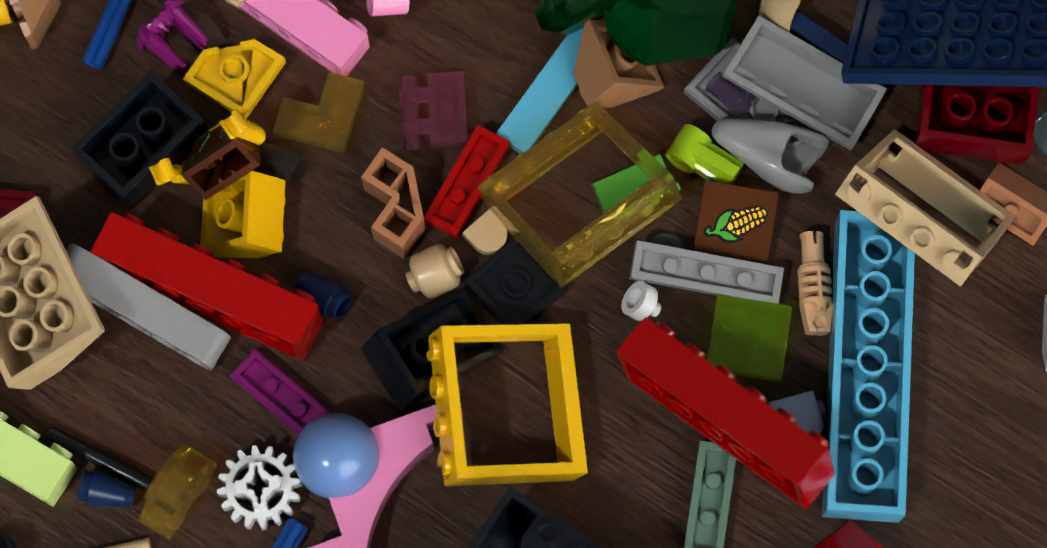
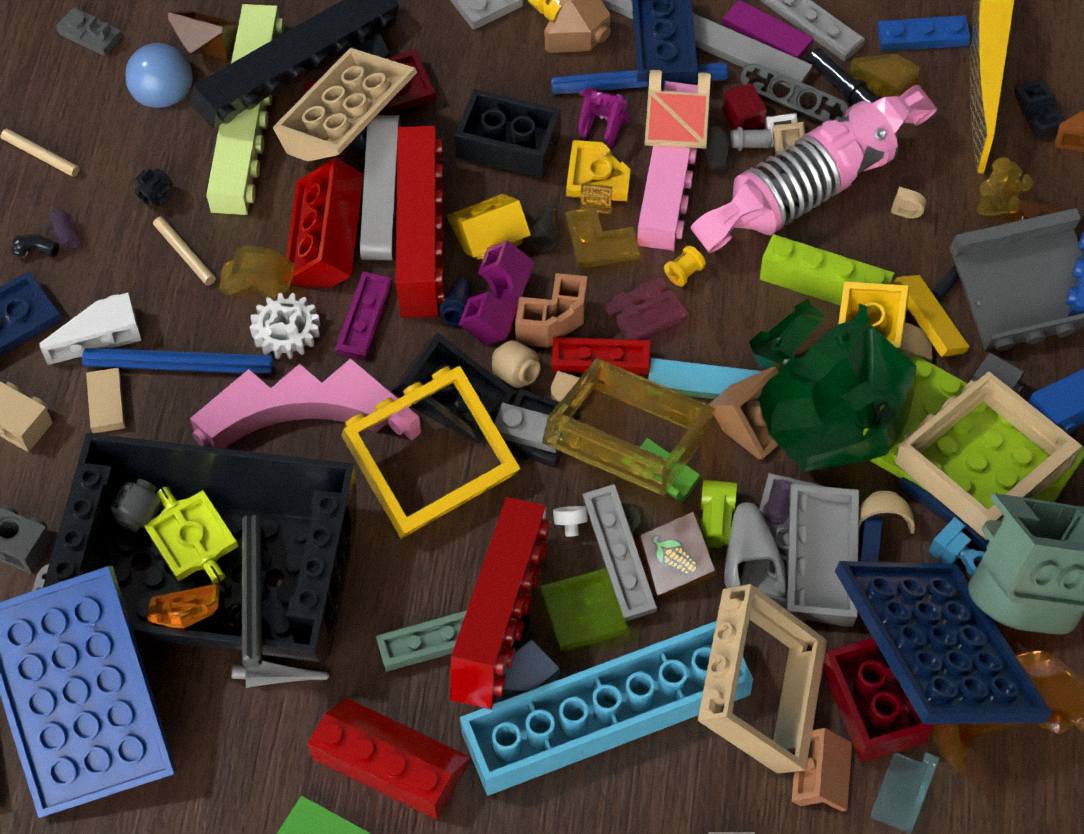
camera: 65 degrees right, 15 degrees down
(99, 458) = (260, 214): black bar -> none
(105, 490) = (234, 229): dark blue cone -> none
(149, 391) = (325, 225): none -> red slope
(216, 157) = (522, 183): copper torso -> none
(271, 91) = (596, 196): none -> clear yellow tile
(323, 227) = (491, 315): none -> magenta arch
(335, 455) = (331, 355): medium blue piece -> none
(402, 45) = (684, 266): none -> yellow bush
(518, 293) = (523, 426): none -> light grey plate
(814, 285) = (656, 633): light nougat hinge -> none

